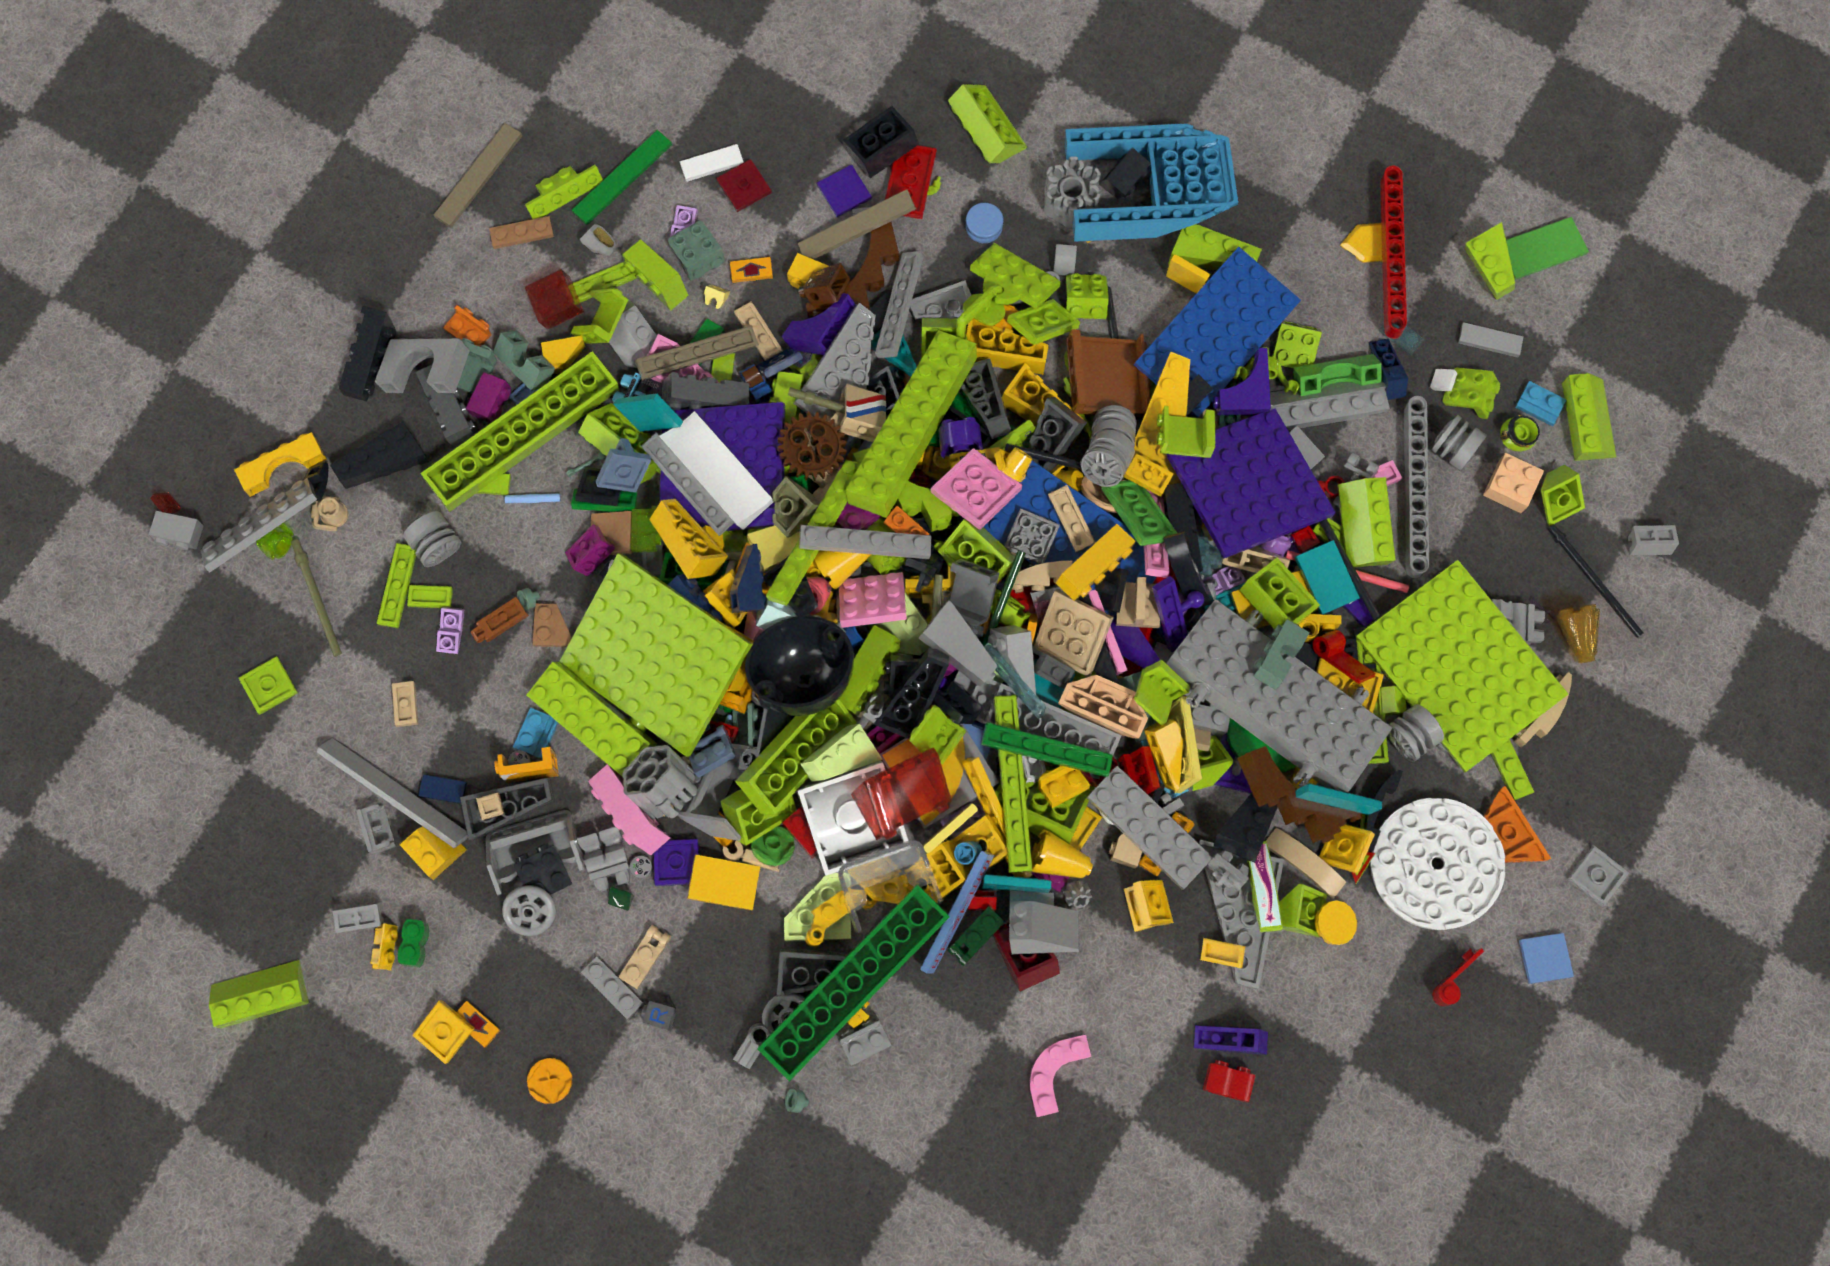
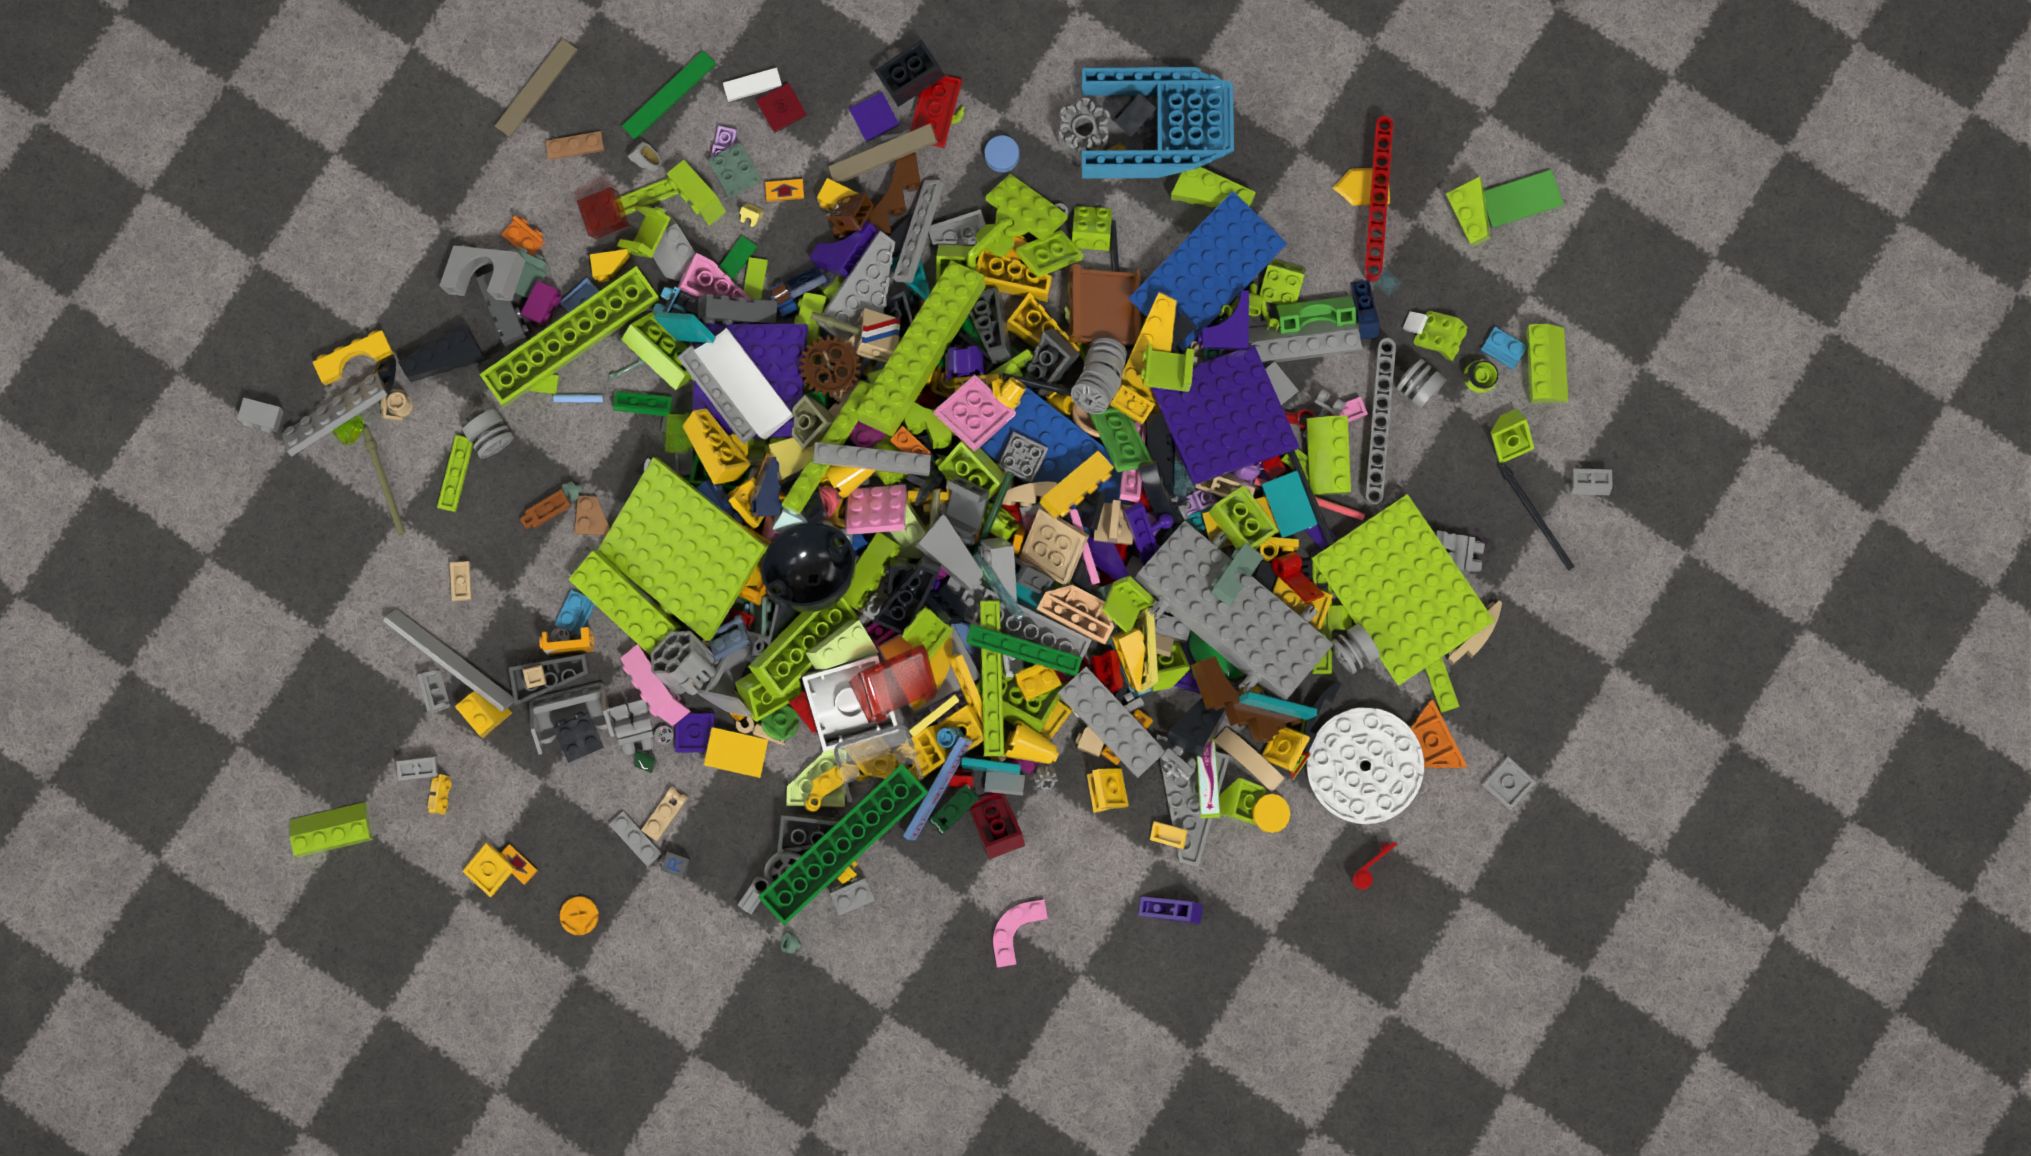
camera: 10 degrees right, 5 degrees up
(165, 502) = (250, 389): clear red tile -> none
(268, 685) = (340, 559): lime tile -> none
(367, 354) = (432, 258): black wedge -> none
(412, 949) = (463, 798): green brick -> none
(429, 596) = (484, 485): lime tile -> none
(442, 789) = (492, 658): dark blue tile -> none
(450, 630) = (502, 516): lavender slope -> none
(532, 371) = (563, 262): sand green arch -> none
(532, 893) = (569, 754): light grey plate -> none
(562, 189) = (613, 105): lime bracket -> none
(589, 551) = (627, 450): magenta bracket -> none
(590, 493) = (640, 390): black tile -> none
(616, 529) = (647, 434): medium nougat tile -> none
(623, 468) = (660, 377): sand blue bracket -> none
(696, 352) = (731, 270): dark tan tile -> none
(767, 343) = (788, 249): tan tile -> none
(986, 123) = (1010, 56): lime slope -> none
(1042, 928) = (1011, 806): light grey slope -> none
(1065, 259) = (1074, 193): light grey brick -> none
(1071, 518) = (1059, 442): tan tile -> none
(1187, 274) = (1184, 213): yellow tile -> none
(1228, 1081) = (1165, 945): red brick -> none
(1490, 339) = (1463, 285): light grey tile -> none
(1513, 483) = (1469, 423): light nougat brick -> none
(1546, 958) = (1455, 853): medium blue tile -> none
(1581, 631) = (1515, 562): clear yellow cone -> none

